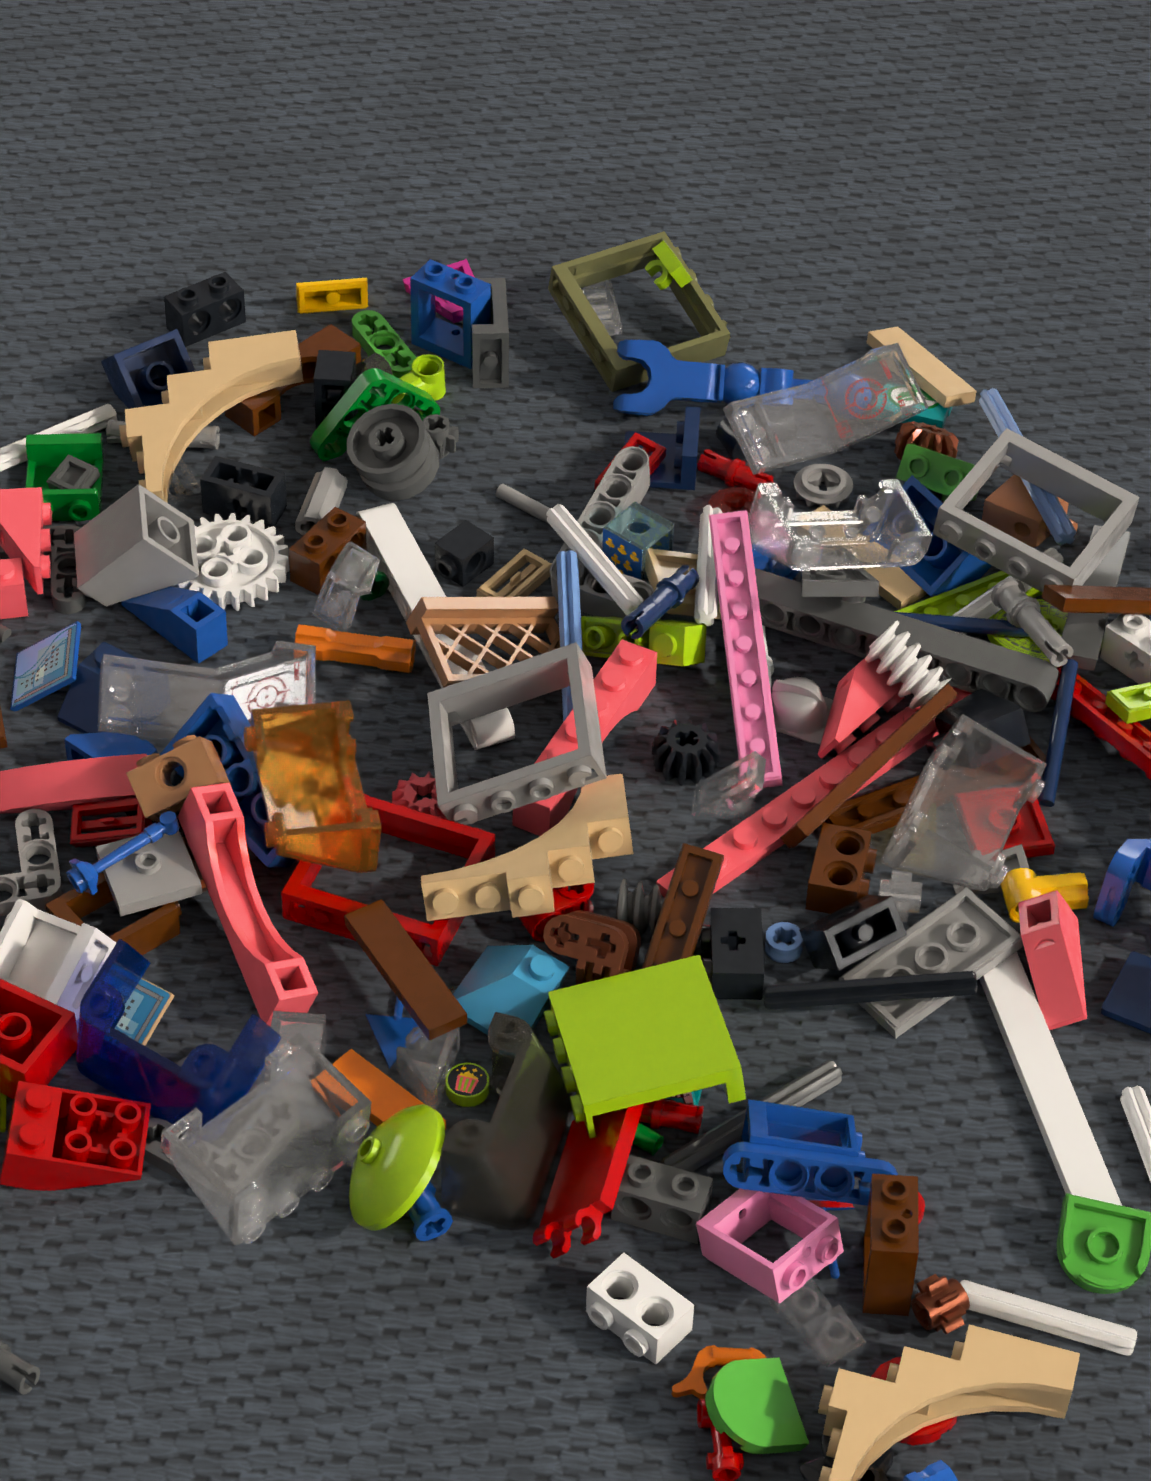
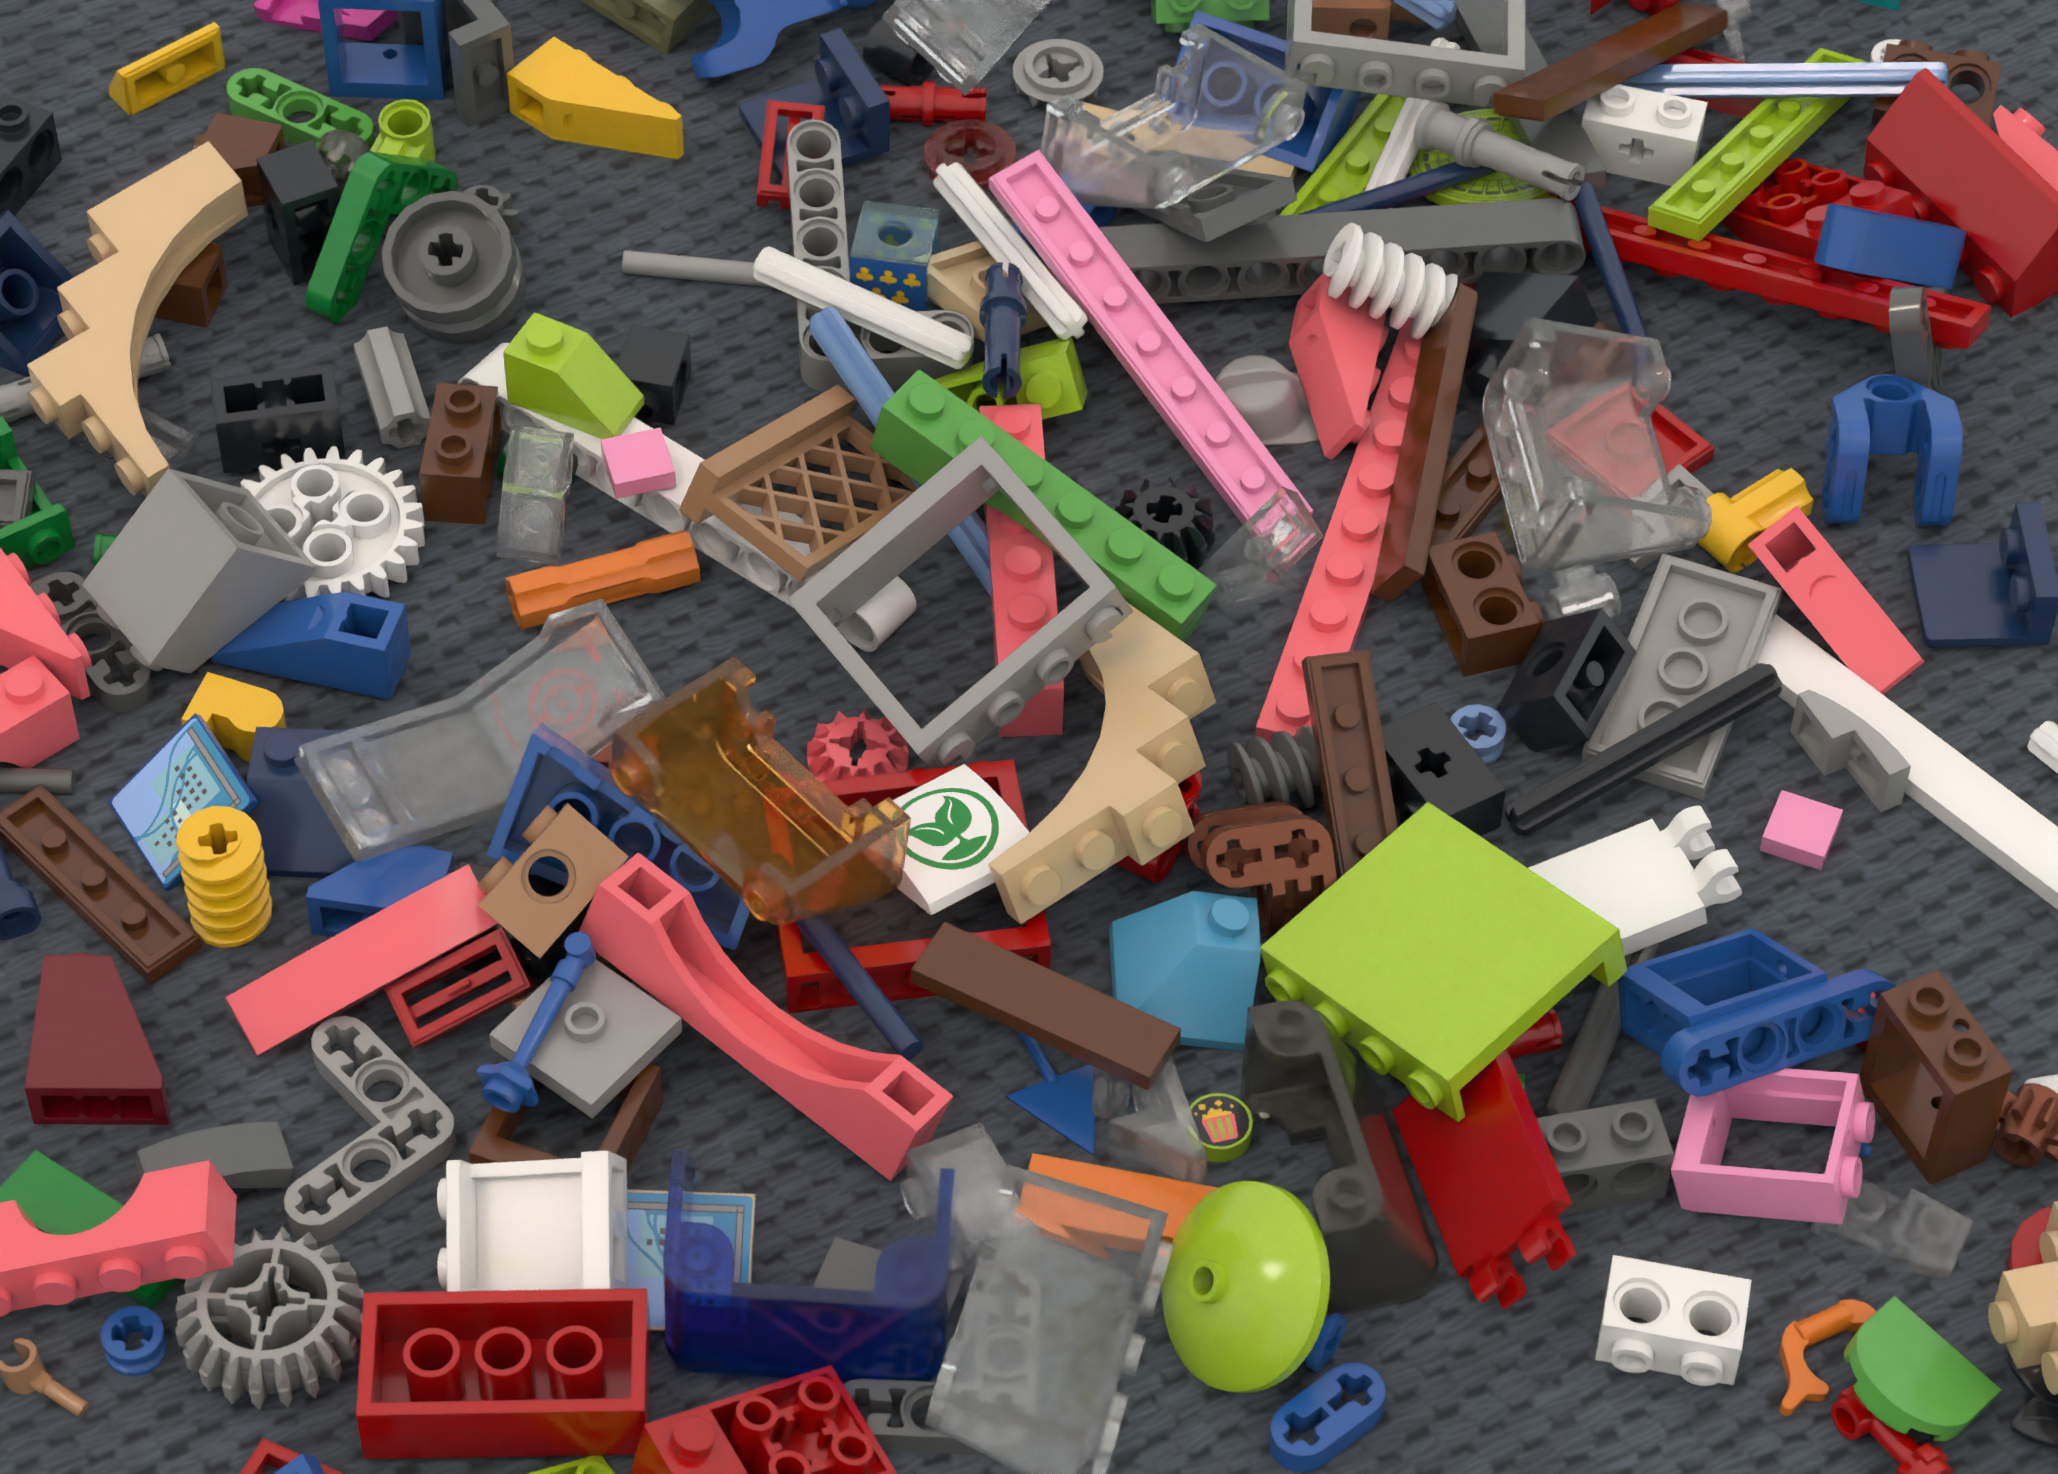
camera: 30 degrees left, 5 degrees up
(30, 709) = (224, 876): none -> yellow piece
(106, 627) = (235, 711): none -> yellow leg
(313, 913) = (861, 986): none -> dark blue bar
(403, 531) = (569, 379): none -> lime slope
(404, 1265) = (1318, 1405): none -> blue beam
(408, 589) = (638, 463): none -> bright pink tile
(416, 851) = (953, 837): none -> slope
(521, 583) = (739, 420): tan tile -> none
(537, 396) = (587, 104): none -> yellow slope
(648, 780) = (930, 426): none -> bright green arch
(797, 1061) = (1646, 880): none -> white tile
(939, 1080) = (1801, 830): none -> bright pink tile
(1000, 1043) = (1842, 739): none -> light grey slope

